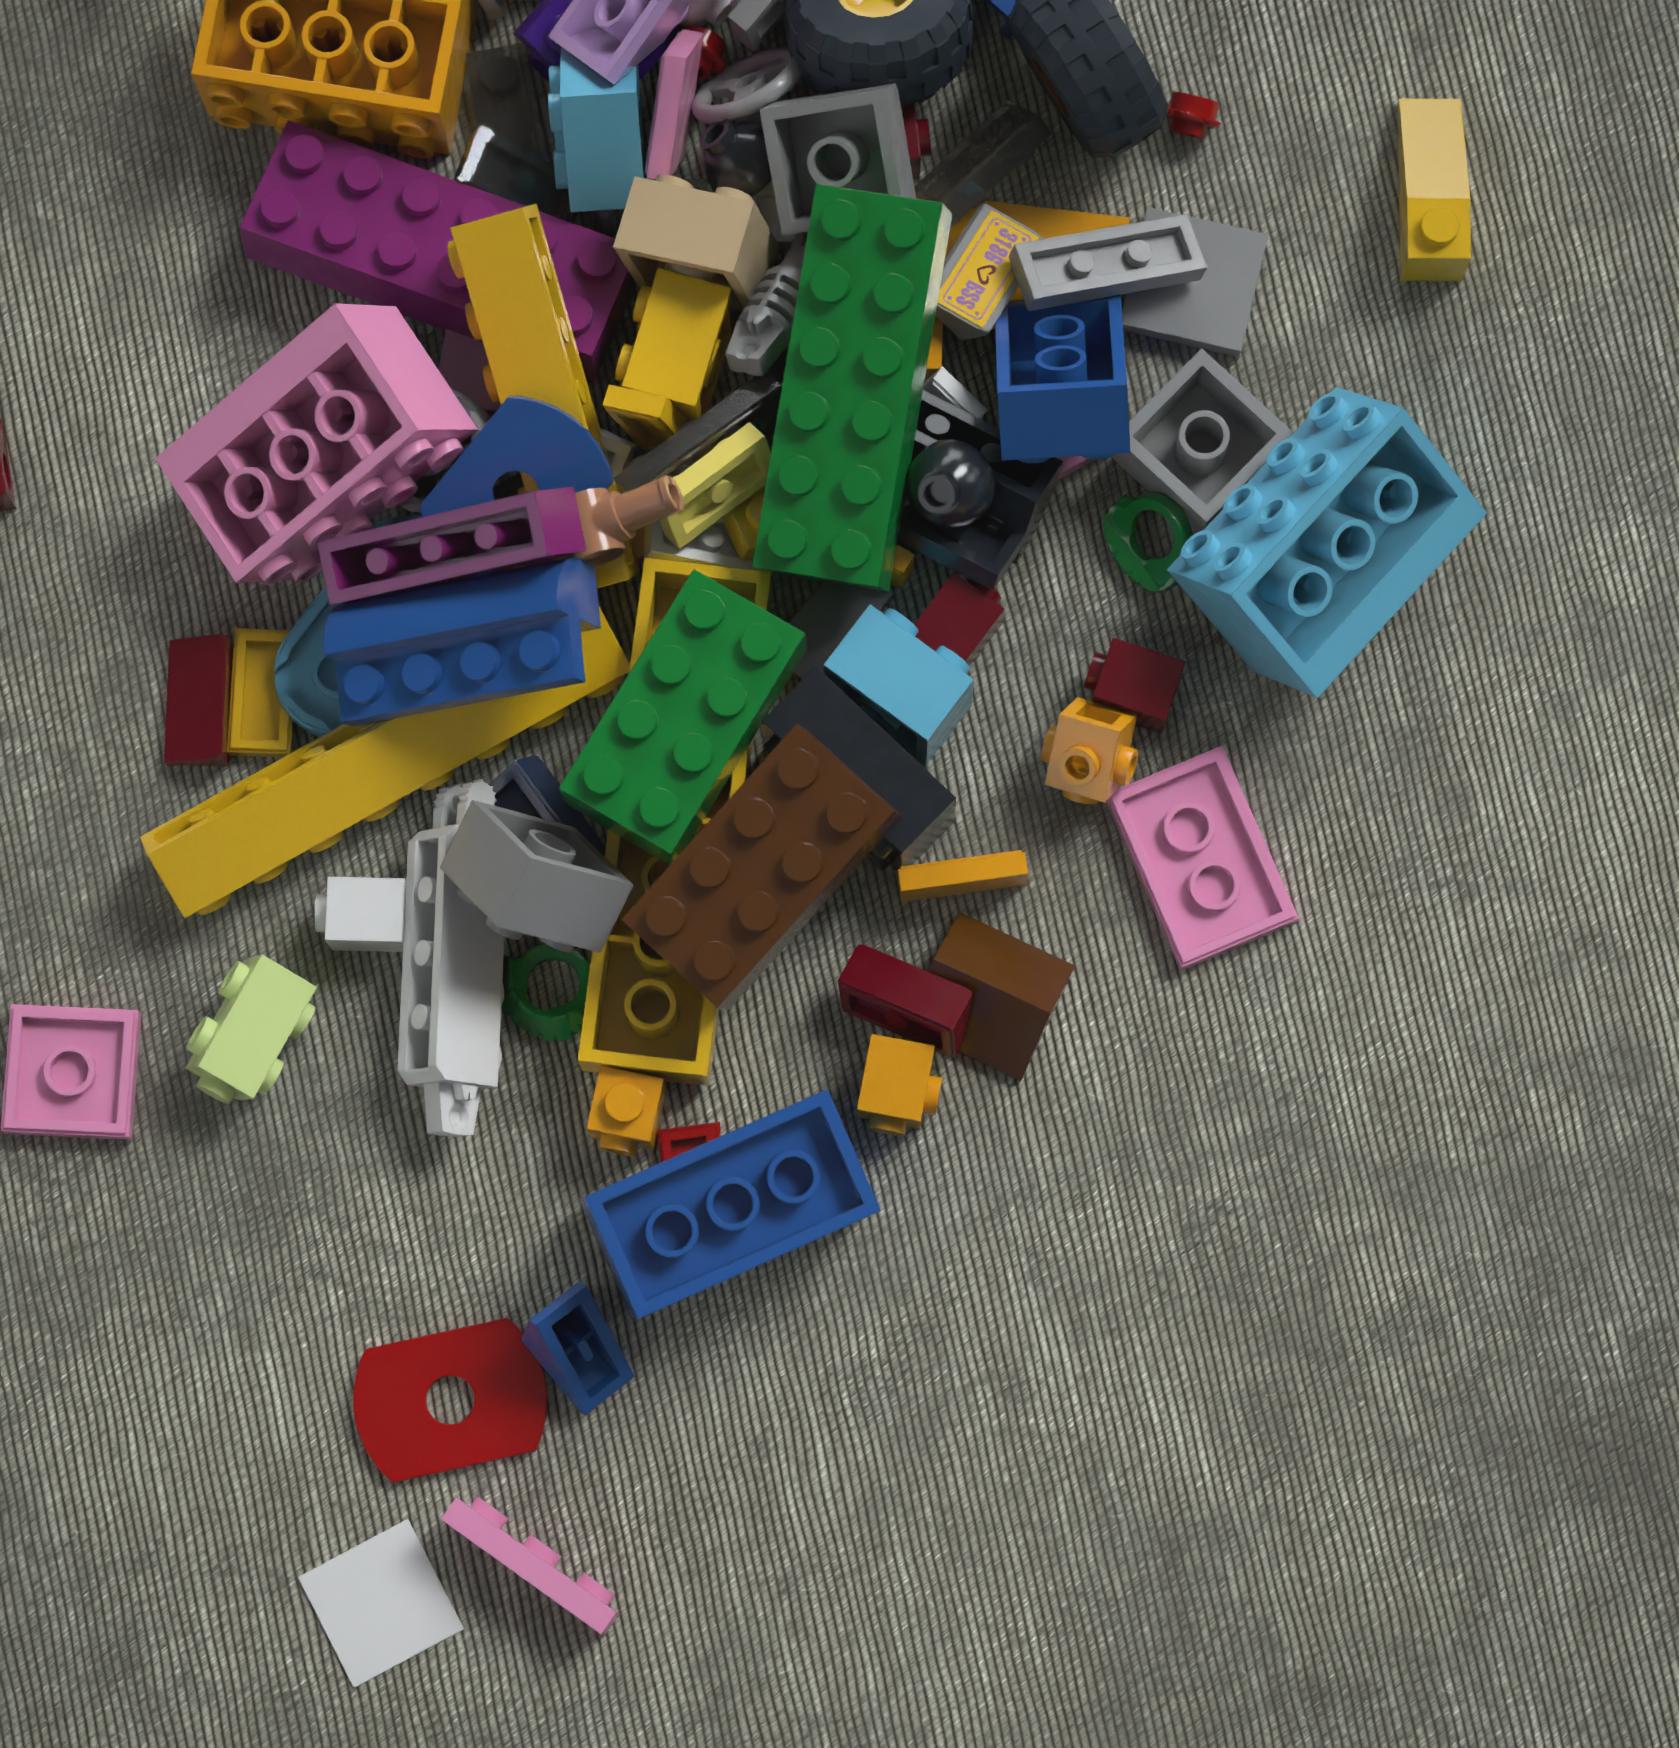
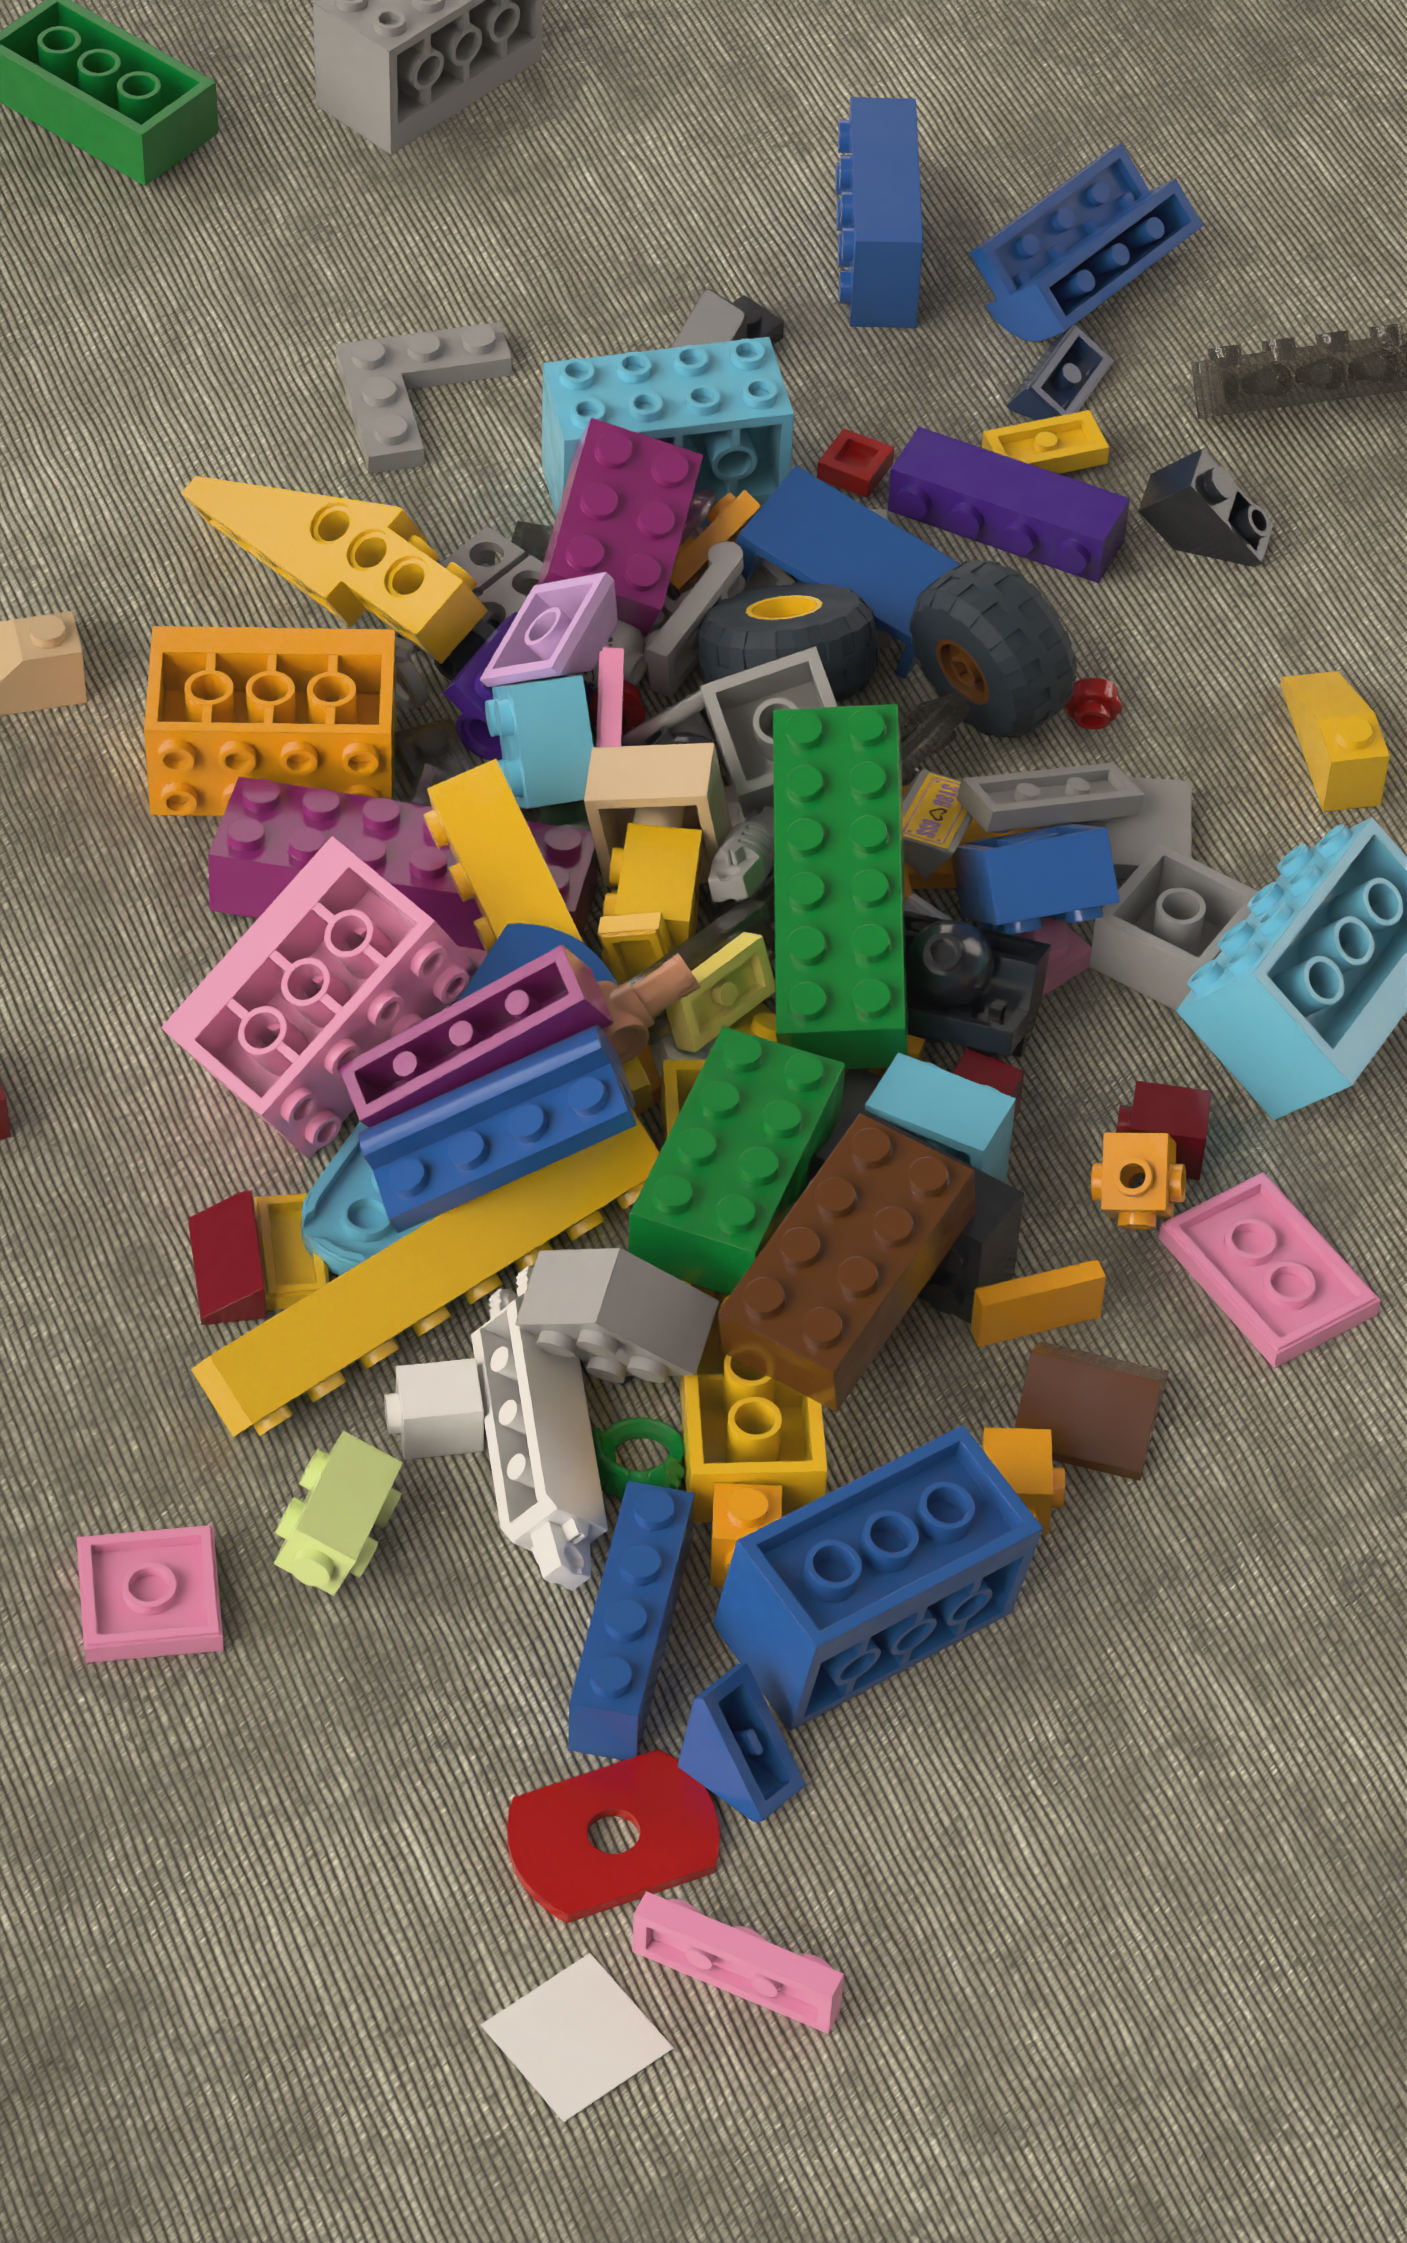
camera: 15 degrees left, 30 degrees down
(503, 1186) = (631, 1621): none -> blue brick
(905, 999) = (1009, 1398): dark red slope -> none
(1121, 530) = (1115, 1019): green piece -> none

